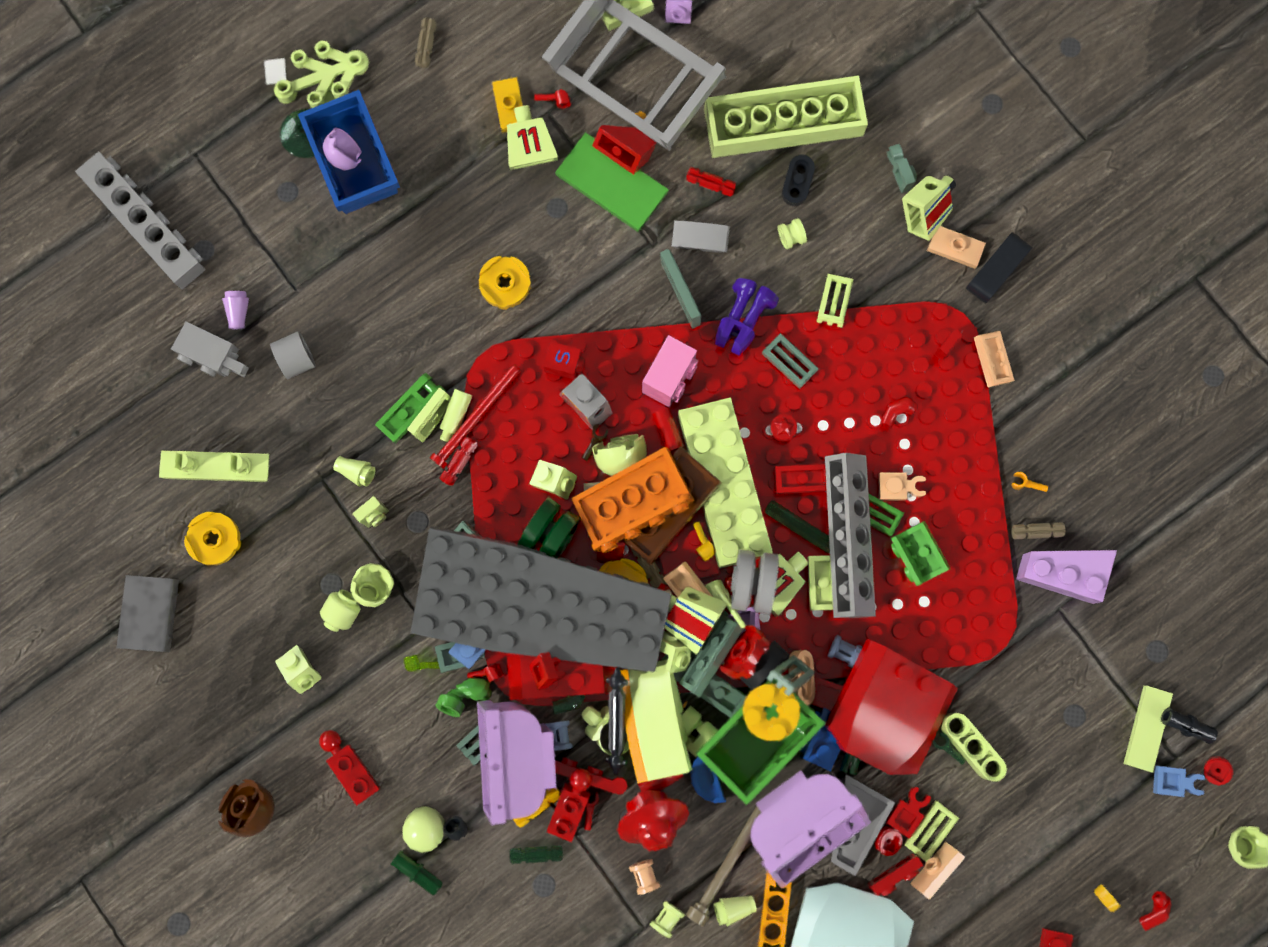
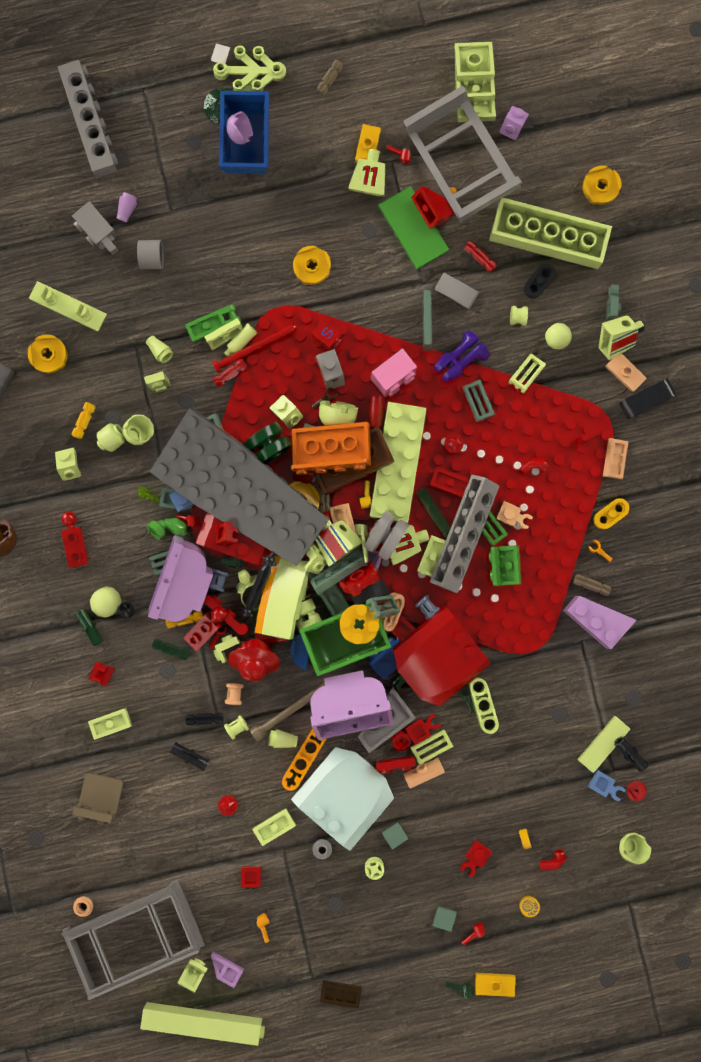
camera: 20 degrees right, 5 degrees up
(294, 604) = (83, 420): none -> yellow axle
(458, 927) = (101, 673): none -> red tile
(607, 812) = (227, 642): none -> yellowish green bracket
(620, 927) = (206, 718): none -> black axle
(821, 47) = (606, 176): none -> yellow plate
(853, 238) = (558, 336): none -> yellowish green piece
(1019, 431) = (611, 514): none -> yellow plate

